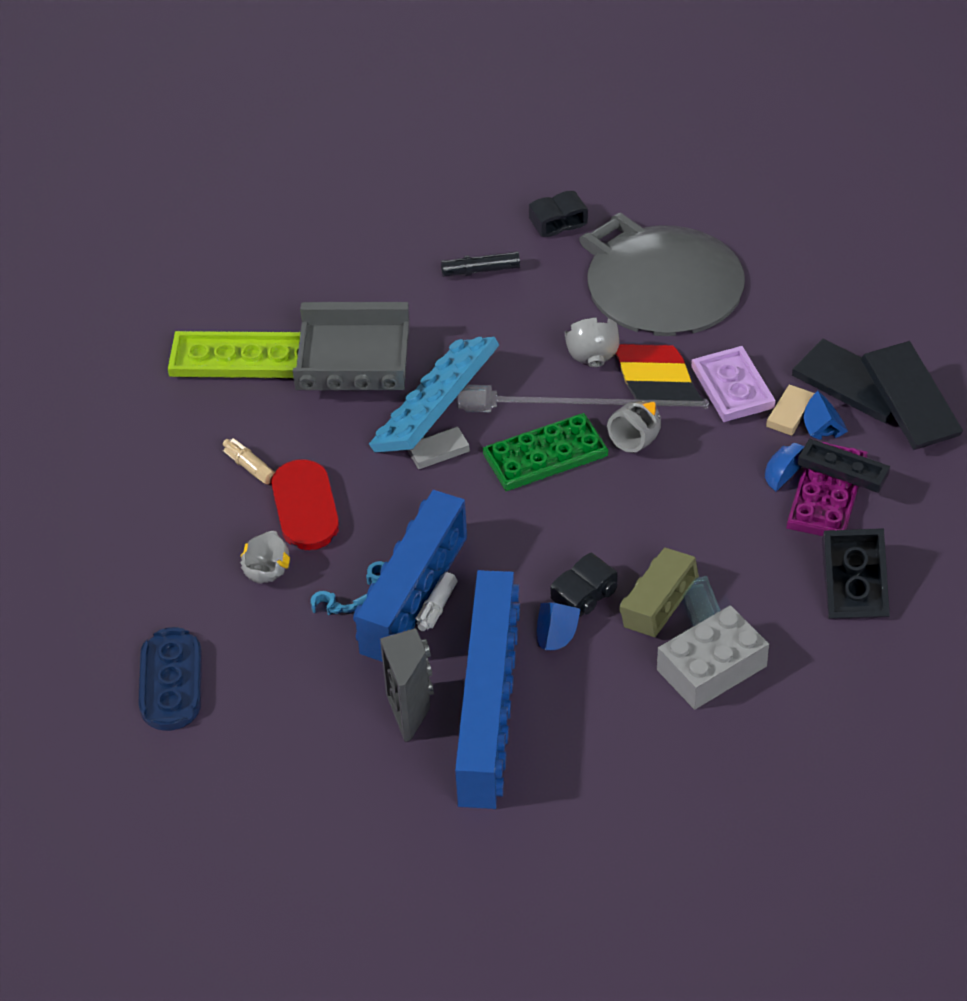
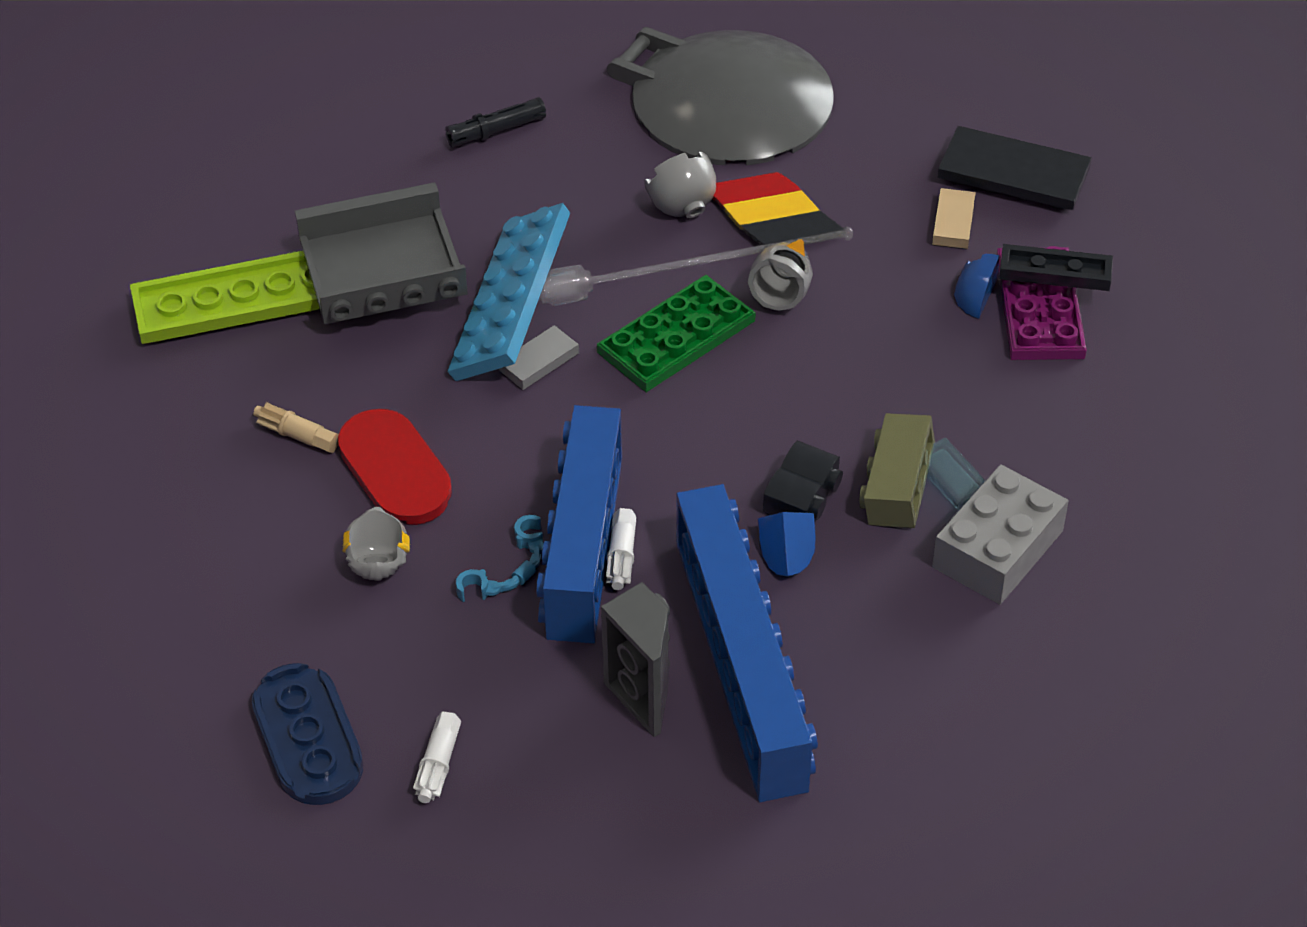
camera: 20 degrees left, 0 degrees up
(248, 717) = (435, 763): none -> white piece
(558, 213) = (568, 42): black brick -> none
(733, 384) = (873, 201): lavender plate -> none
(822, 418) = (997, 220): blue brick -> none
(855, 573) = (1123, 392): black slope -> none
(911, 395) = (1096, 169): black tile -> none

